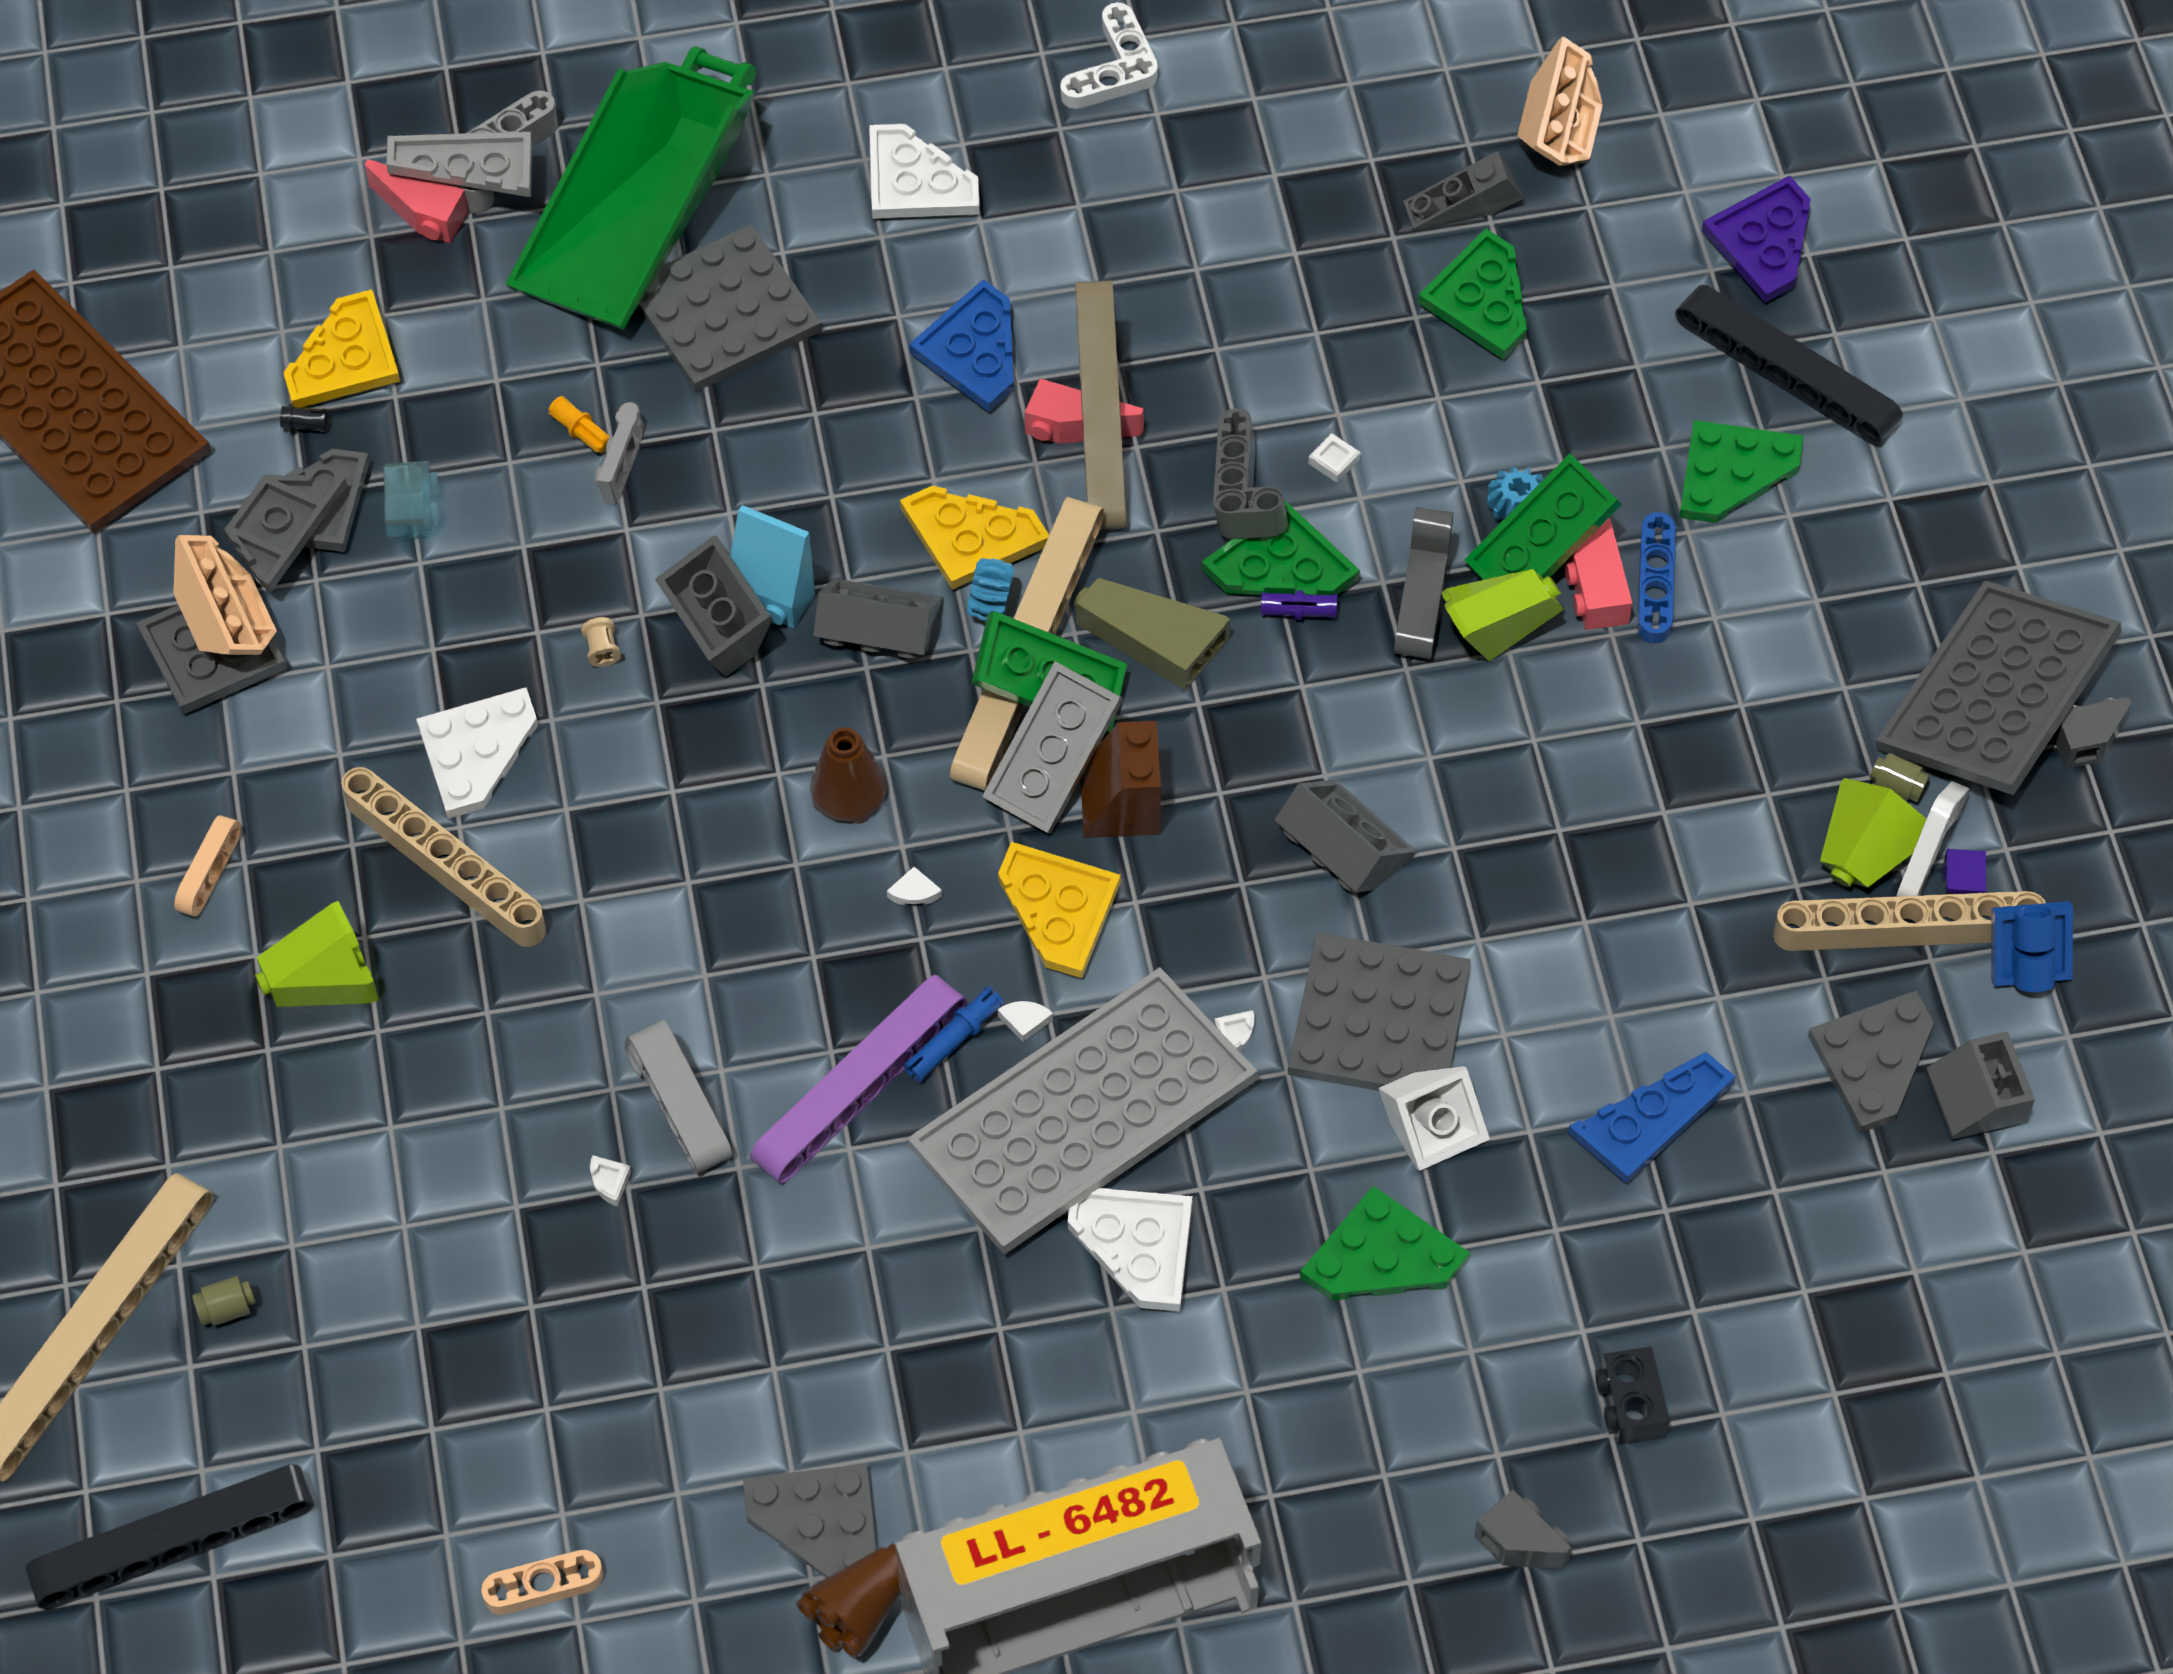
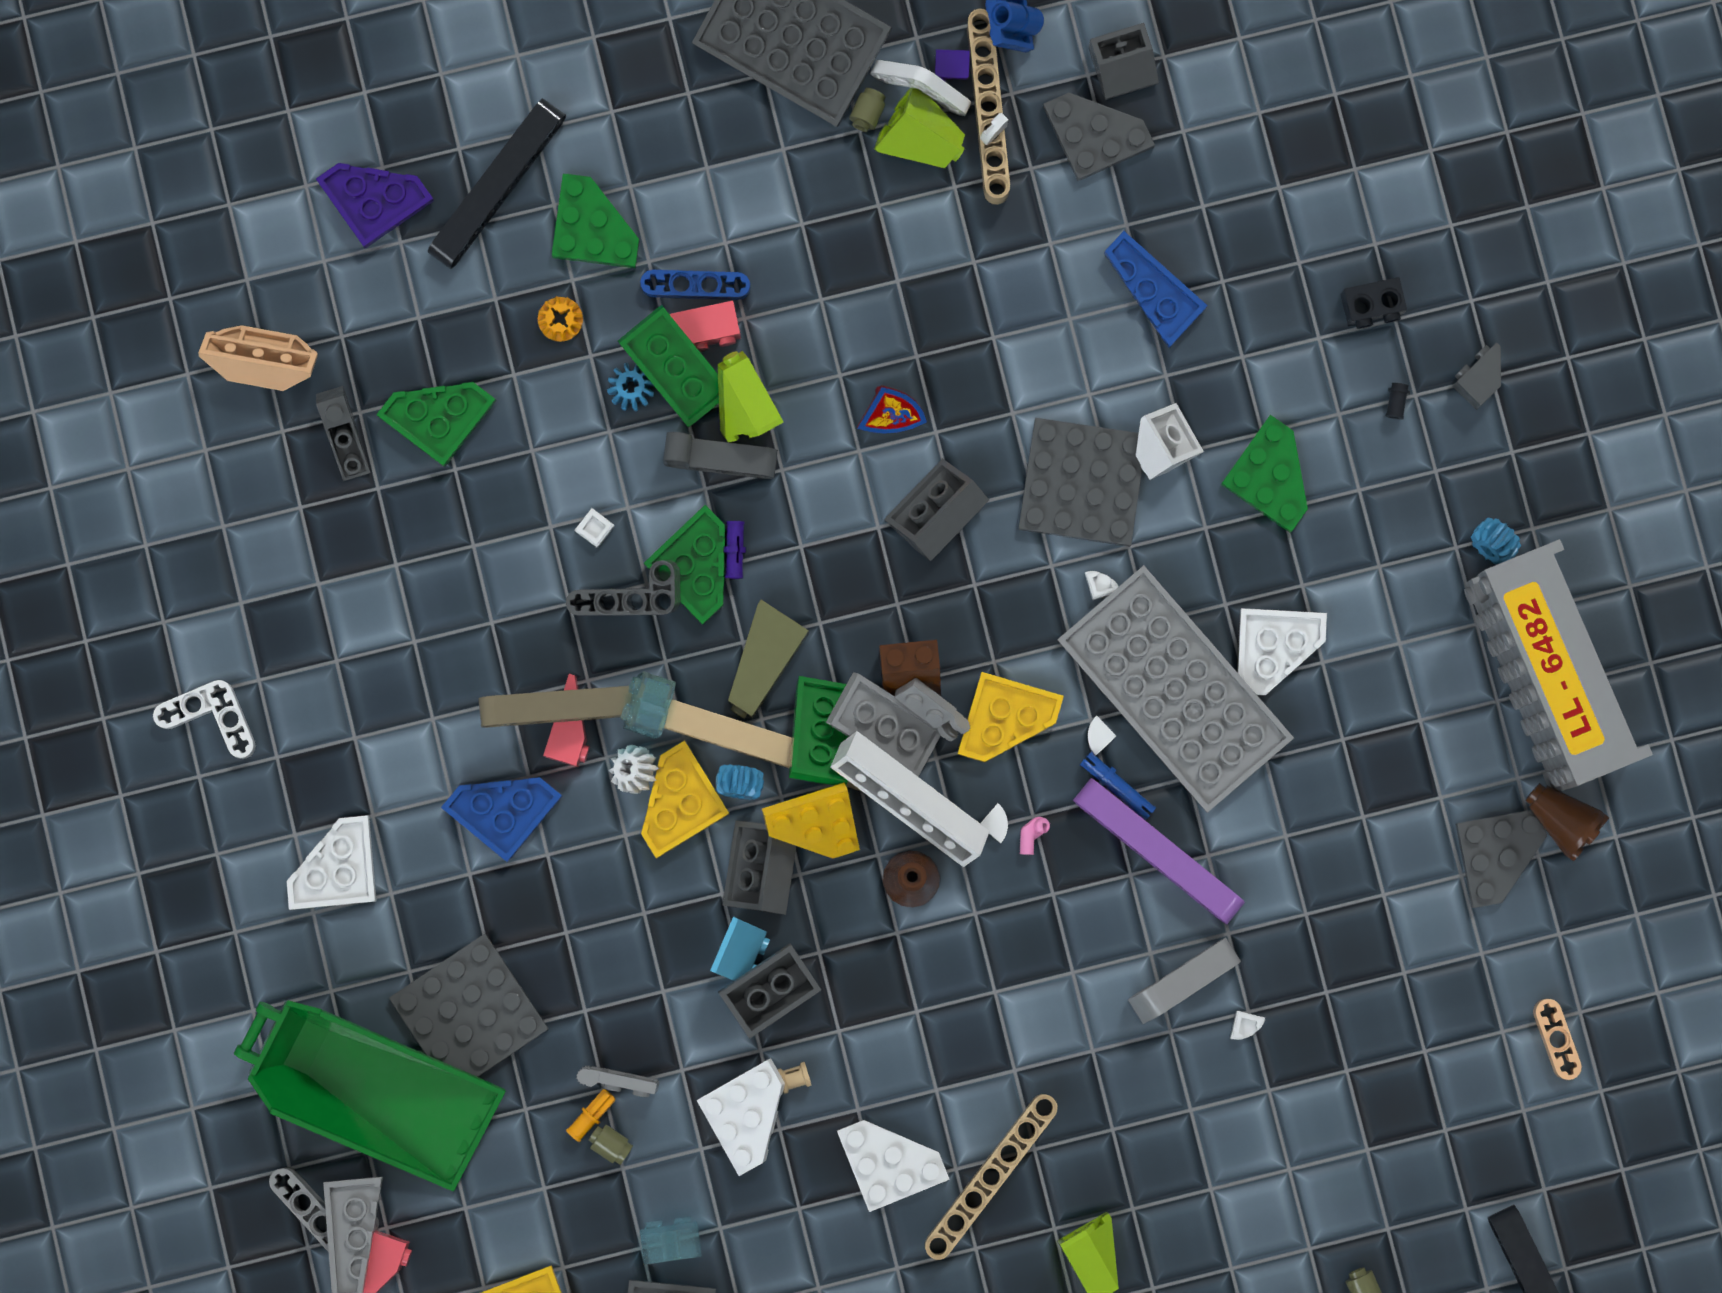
camera: 95 degrees left, 25 degrees up
(541, 442) = (610, 1144): none -> olive brick
(559, 582) = (745, 1114): none -> white plate
(897, 928) = (1030, 832): none -> bright pink arm
(930, 657) = (815, 822): none -> yellow plate
(951, 763) = (910, 799): none -> white brick
(1016, 477) = (633, 769): none -> white gear
(1070, 804) = (932, 709): none -> light grey hinge
(1096, 478) = (648, 704): none -> clear light blue brick
(1279, 1528) = (1495, 541): none -> dark azure gear
(1478, 783) = (891, 412): none -> shield
(1488, 1422) = (1397, 400): none -> black pin
(1608, 441) = (557, 331): none -> light orange gear
(1874, 909) = (999, 123): none -> white tile

